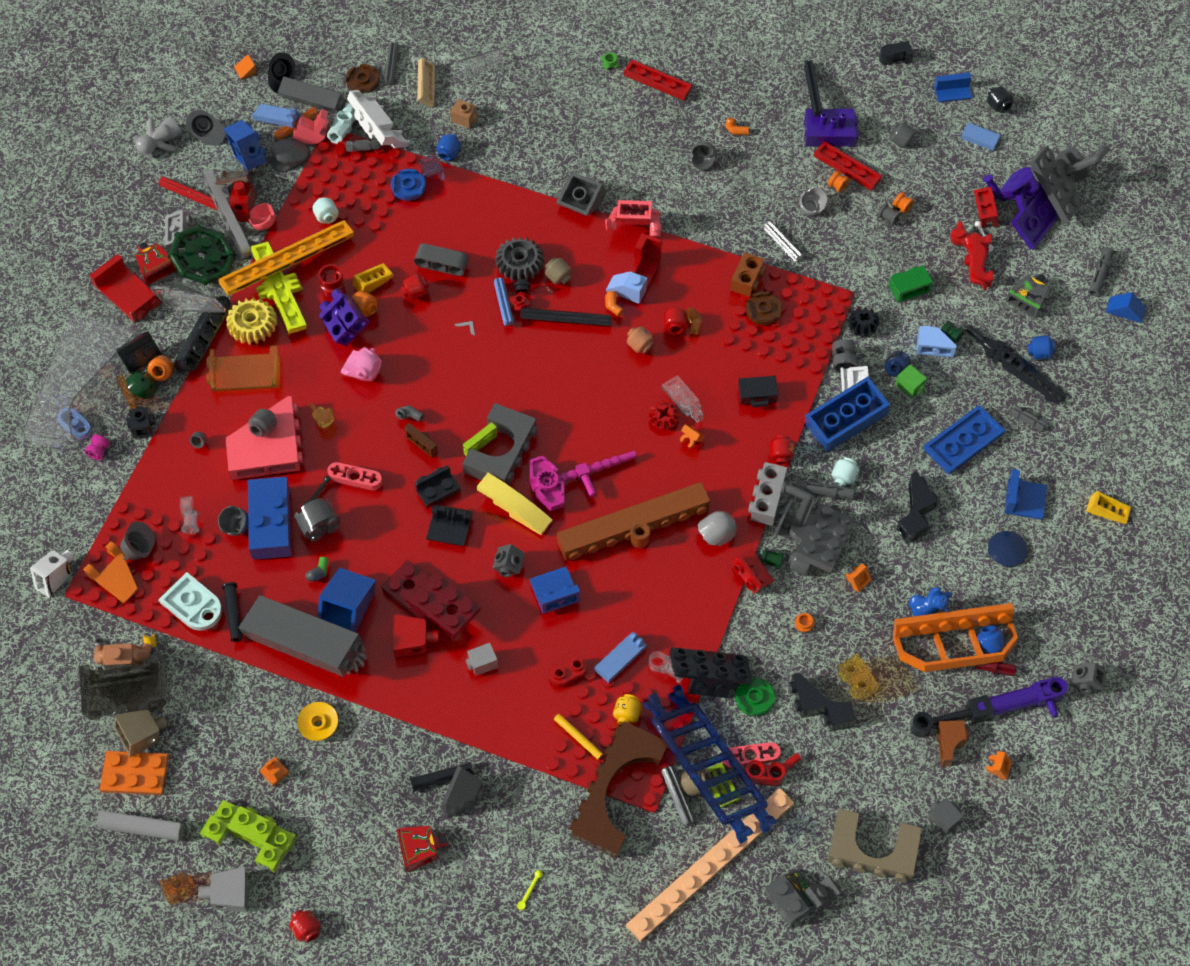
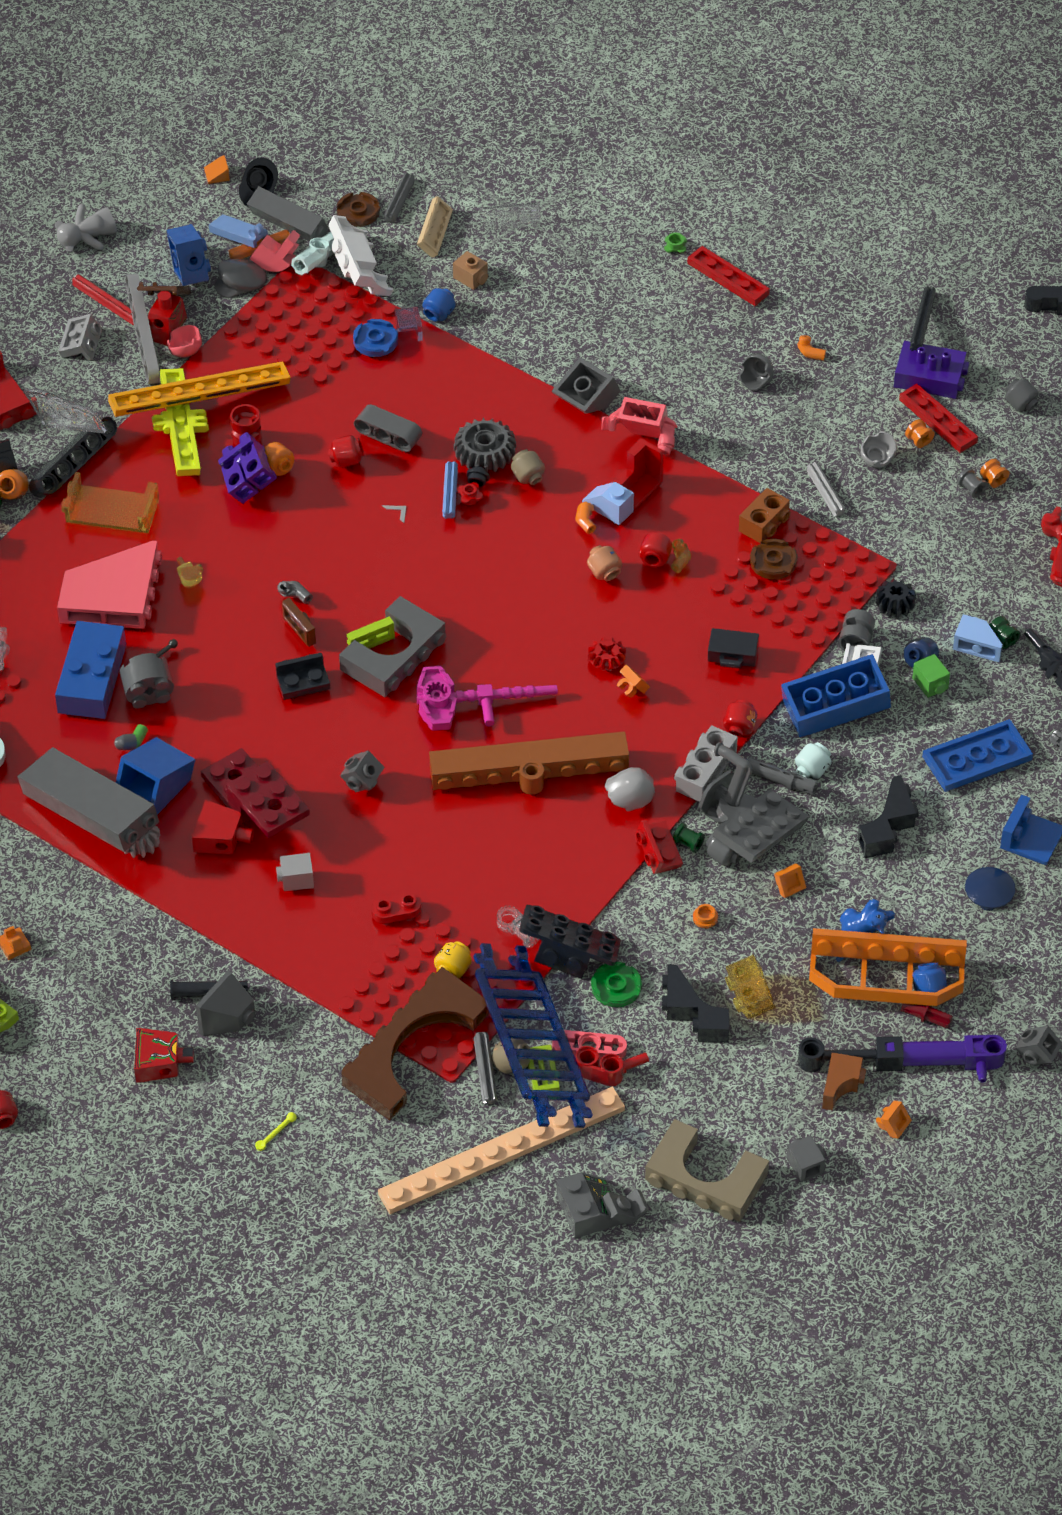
camera: 15 degrees right, 10 degrees down
(154, 262) = (40, 367): red torso -> none
(195, 439) = (29, 569): dark grey hinge -> none
(205, 127) = (144, 220): dark grey piece -> none
(205, 246) = (97, 357): dark green plate -> none
(233, 521) = (46, 664): dark grey hair -> none
(233, 611) = (17, 760): black pin -> none
(239, 321) = (135, 452): light yellow gear -> none
(262, 422) = (112, 561): dark grey head -> none
(317, 712) = (80, 891): yellow dish -> none
(325, 210) = (263, 347): light aqua head -> none
(348, 470) = (201, 638): coral beam -> none
(361, 282) = (290, 434): yellow slope -> none
(362, 145) = (332, 282): dark grey axle -> none
(362, 365) = (255, 526): bright pink helmet -> none
(449, 525) = (304, 721): black hinge -> none
(516, 504) = (390, 712): light yellow slope -> none
(555, 590) = (408, 817): blue bracket -> none
(566, 316) = (522, 521): black axle -> none
(578, 736) = (385, 978): yellow bar -> none
(620, 657) = (465, 905): medium blue hinge -> none
(683, 398) = (637, 638): clear hinge -> none
(910, 283) = (971, 567): green brick -> none

